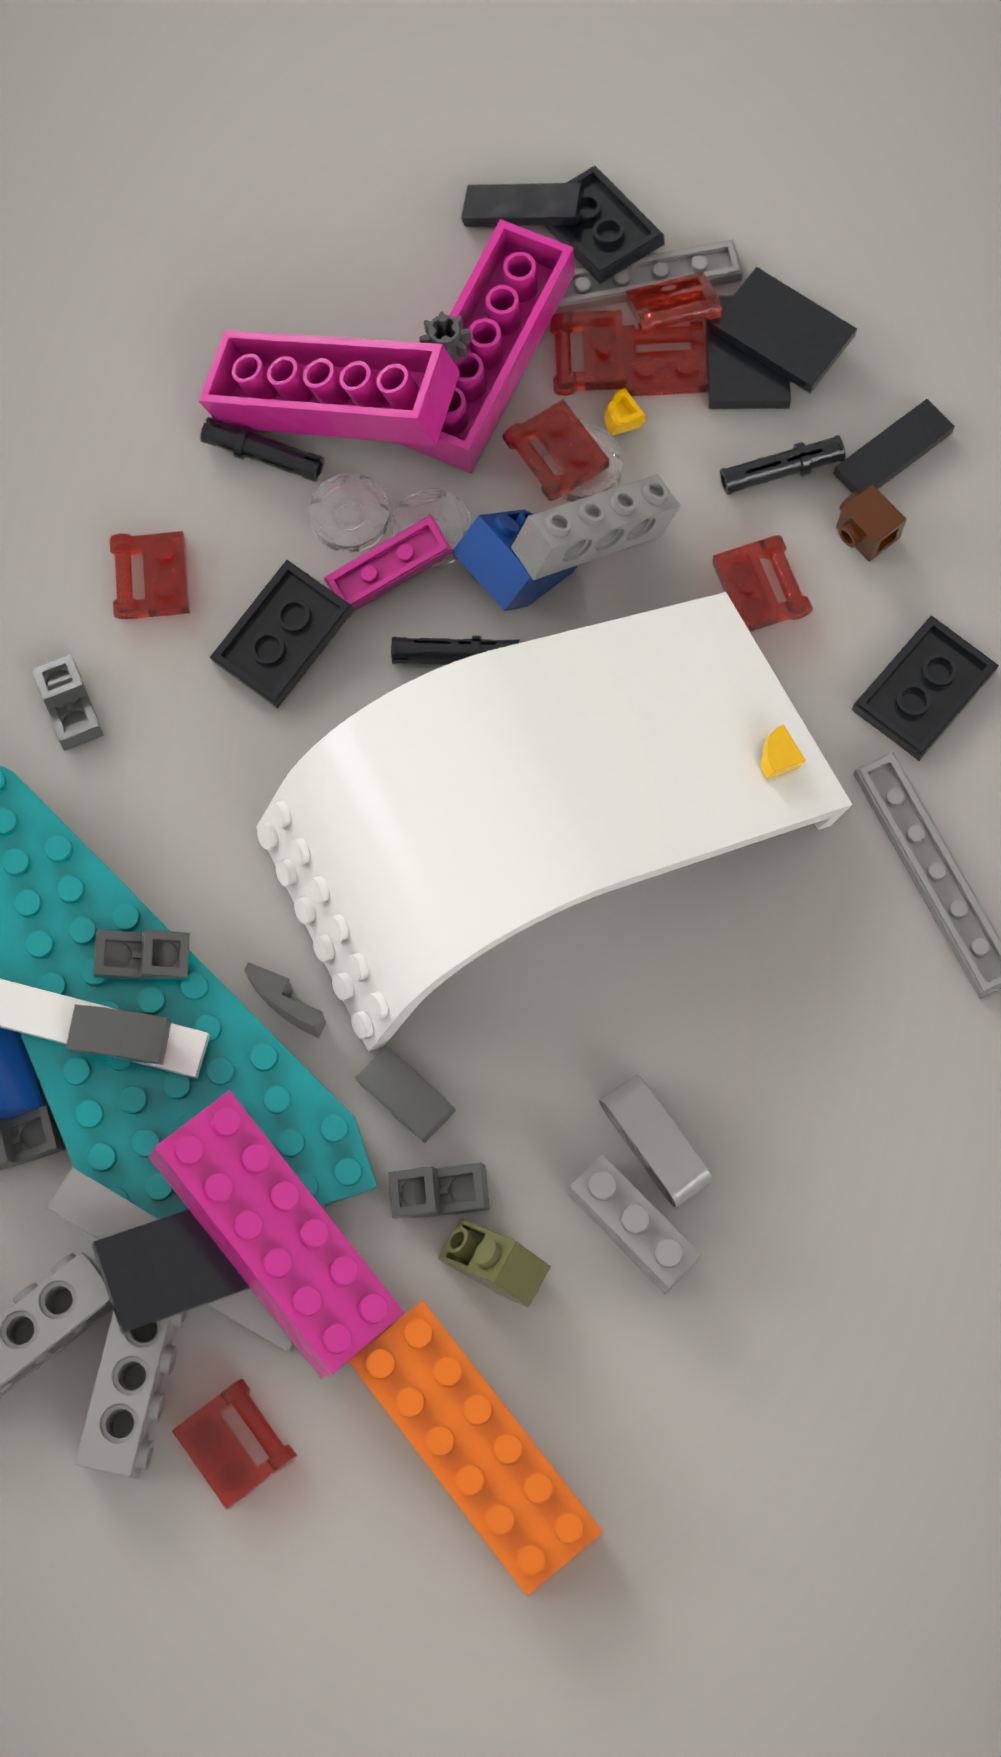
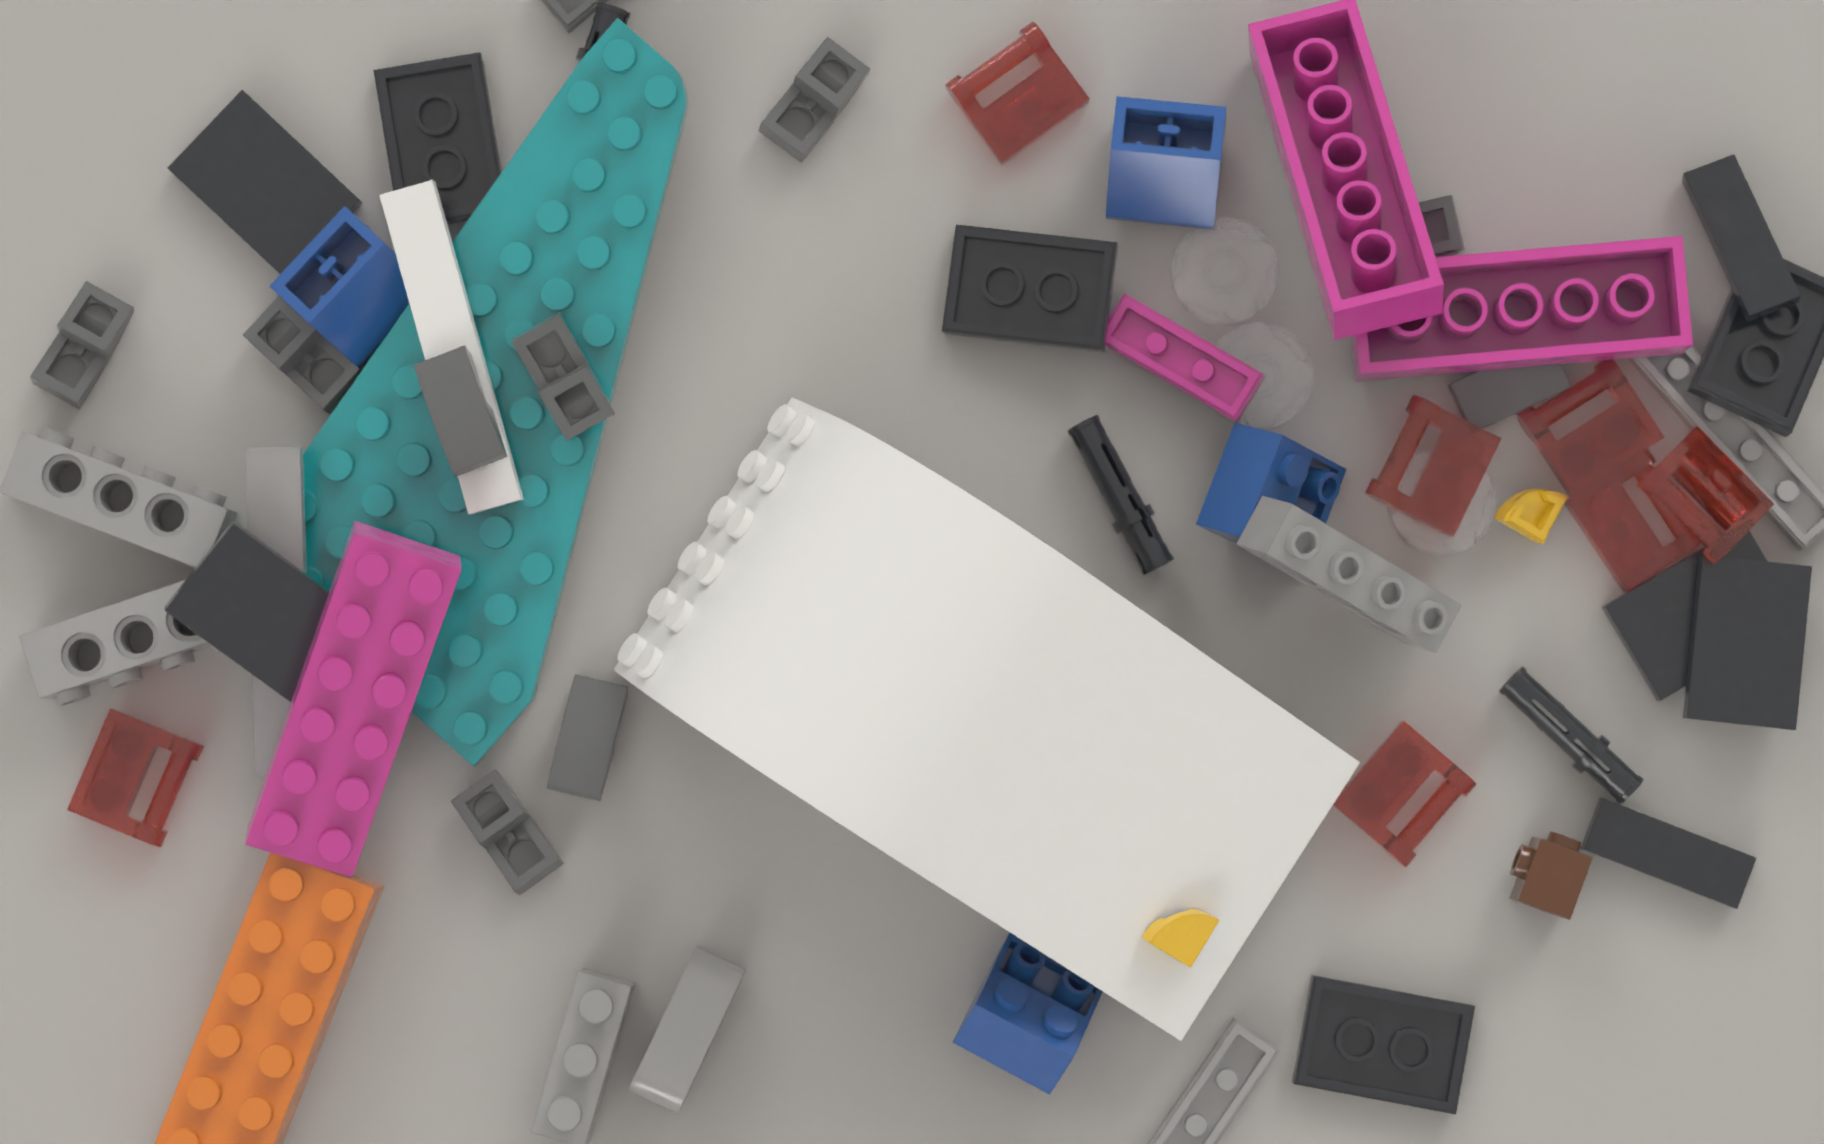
camera: 55 degrees right, 15 degrees up
(253, 500) = (1165, 162): none -> blue slope
(269, 451) = (1243, 123): black pin -> none
(276, 993) = (615, 534): dark grey slope -> none
(449, 332) = (1490, 261): dark grey gear -> none
(495, 1262) = (463, 934): olive slope -> none
(534, 388) = (1500, 393): none -> dark grey tile
(777, 898) = (1028, 1015): none -> blue slope

